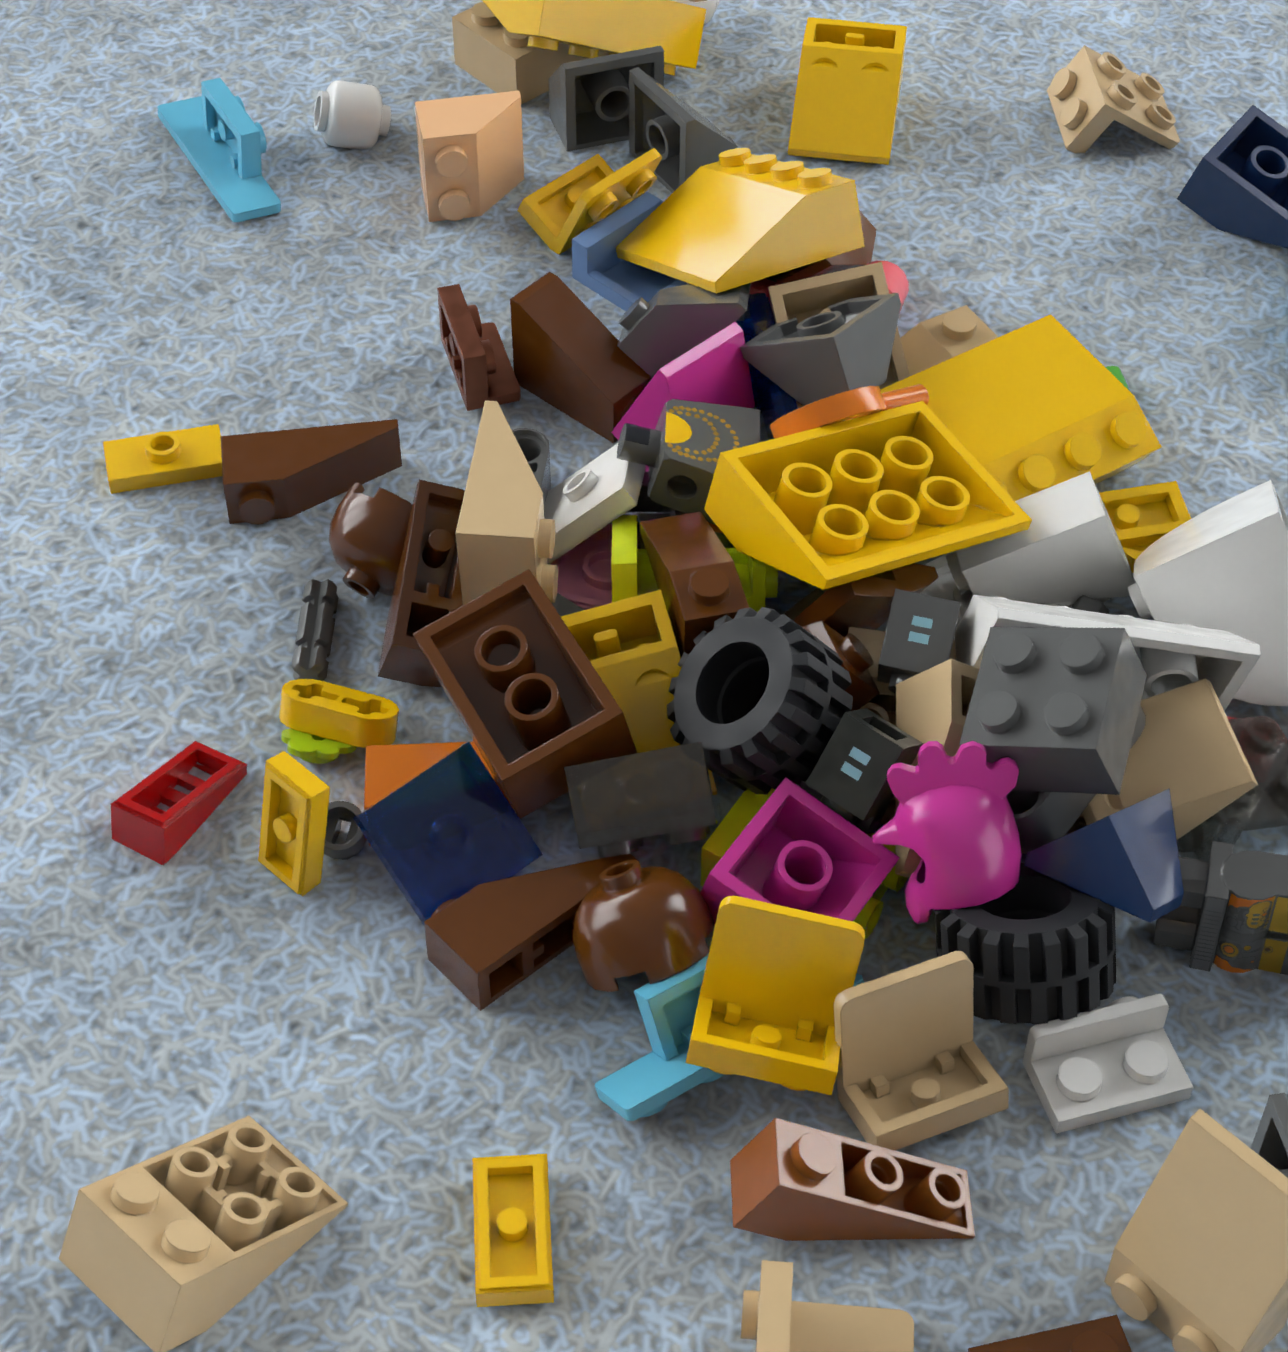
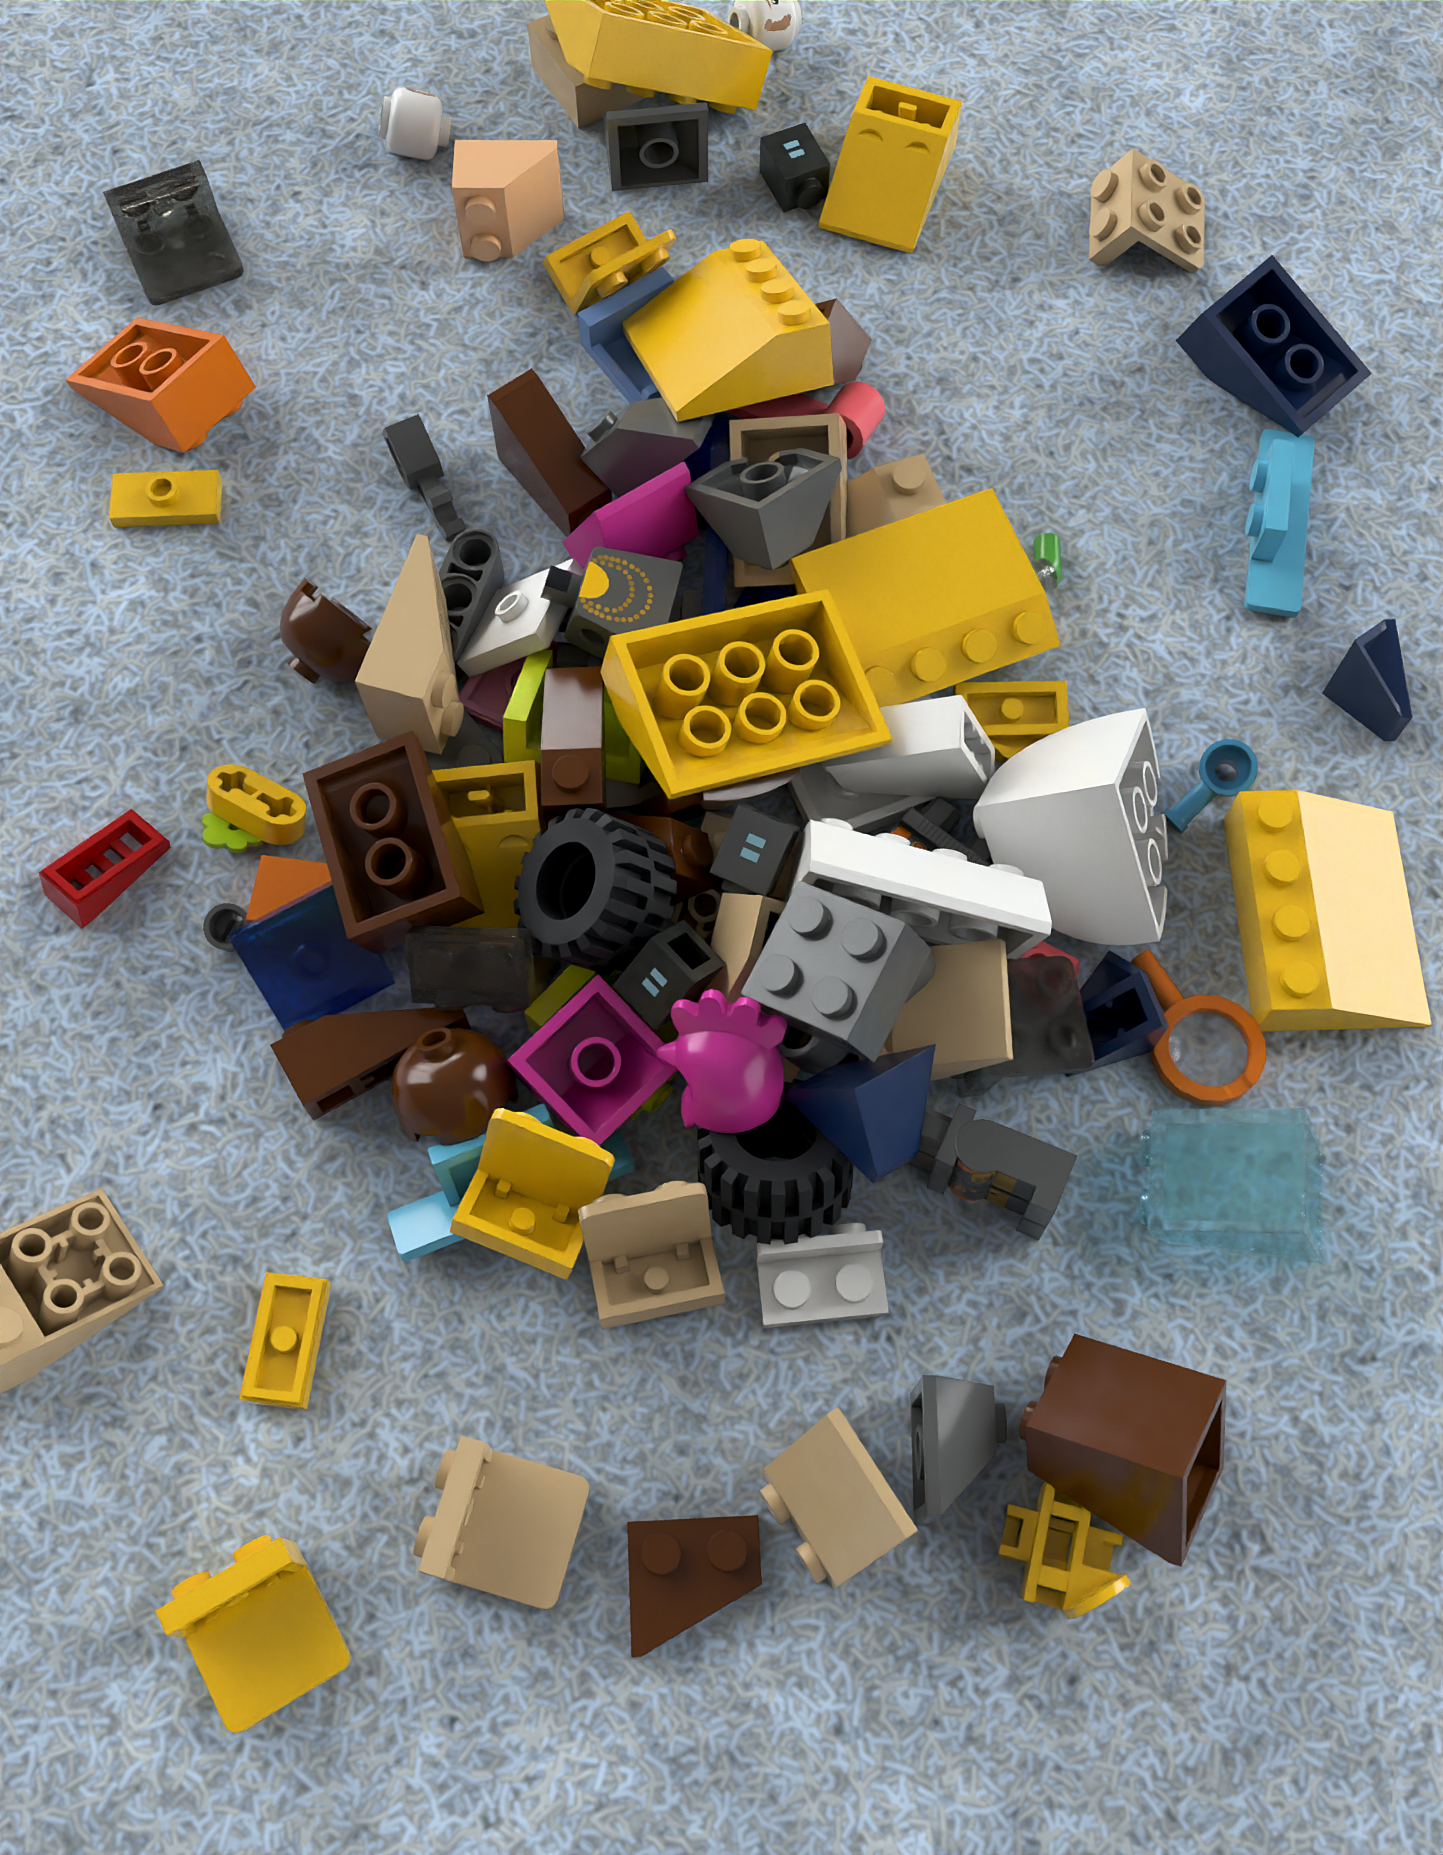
camera: 10 degrees right, 20 degrees up
(119, 230) = (174, 233): none -> clear smoke bracket
(144, 354) = (165, 382): none -> orange slope
(223, 149) = (286, 150): medium azure bracket -> none
(293, 823) = (181, 925): yellow plate -> none
(297, 469) = (272, 535): reddish brown slope -> none
(315, 630) = (257, 710): dark grey axle -> none
(425, 582) = (340, 718): reddish brown slope -> none
(437, 391) = (421, 468): none -> dark grey piece
(475, 352) = (463, 429): copper bracket -> none
(672, 128) = (709, 199): dark grey slope -> none
(750, 106) = (794, 168): none -> pearl dark grey brick
(831, 1187) = (569, 1360): dark orange slope -> none
(846, 406) = (758, 587): orange piece -> none

